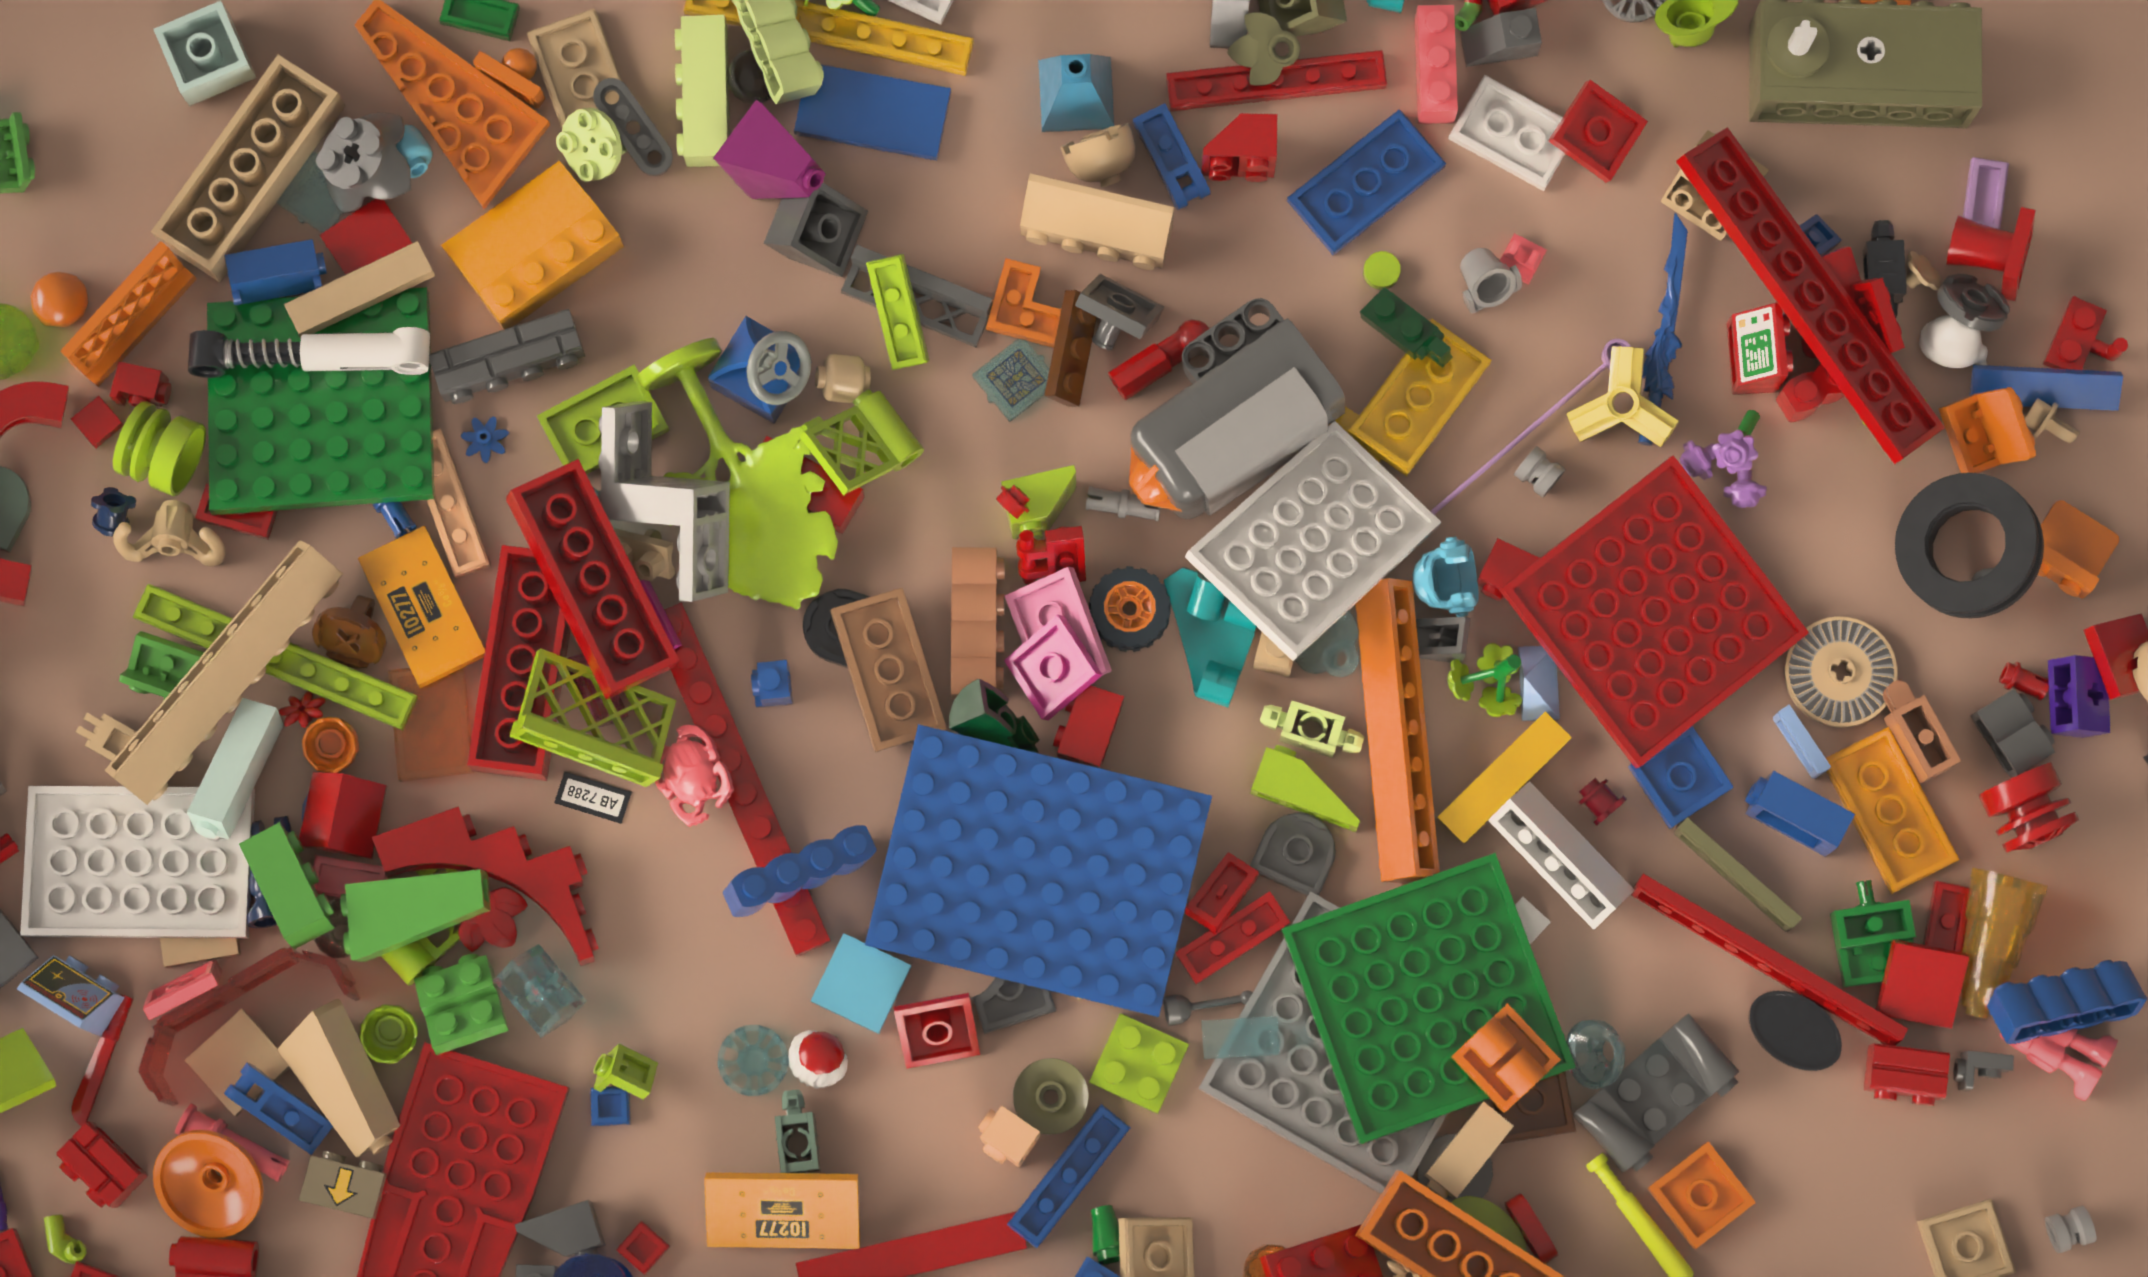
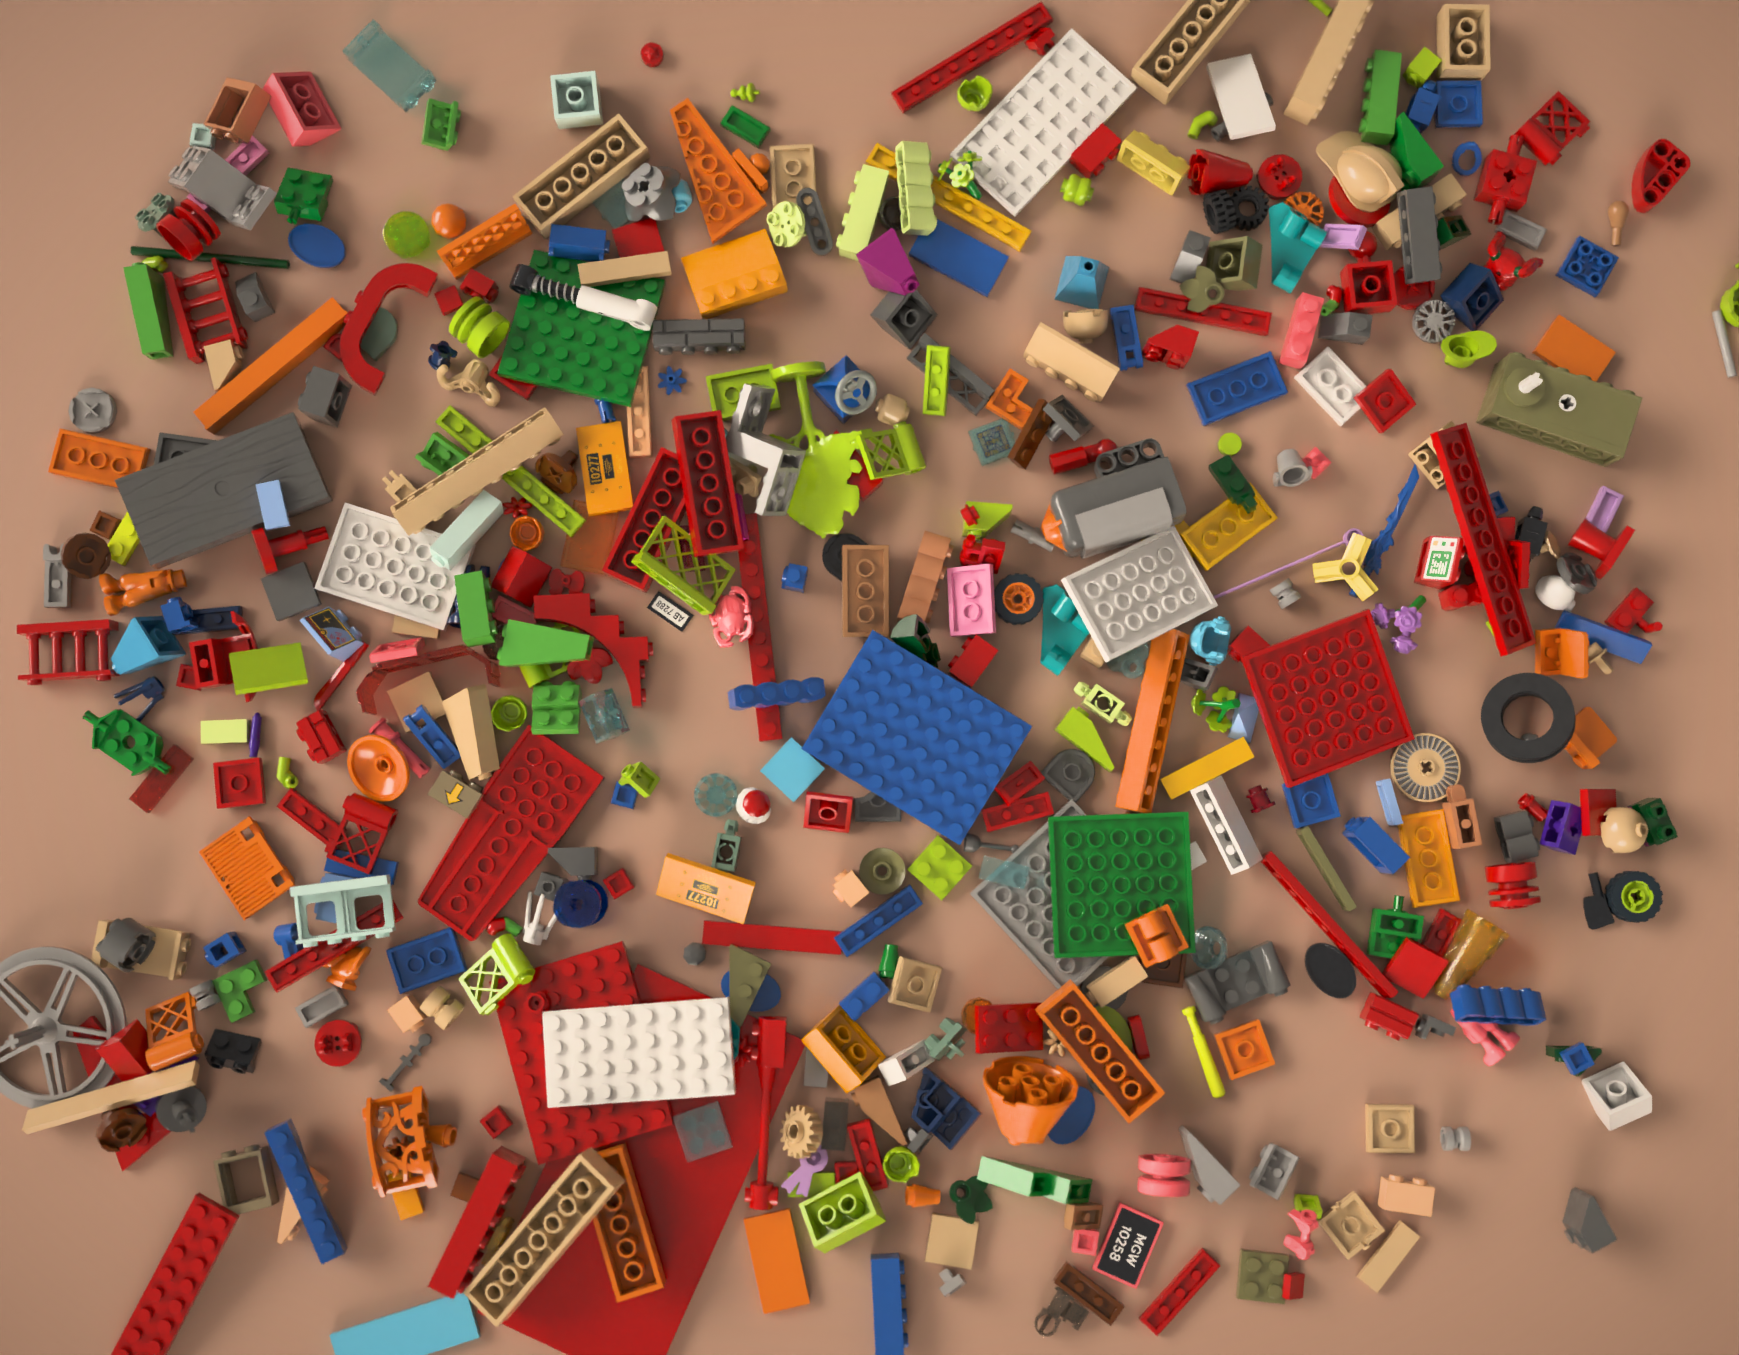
camera: 15 degrees right, 5 degrees up
(402, 802) = (559, 580): none -> red piece
(1053, 667) = (962, 620): tile -> none

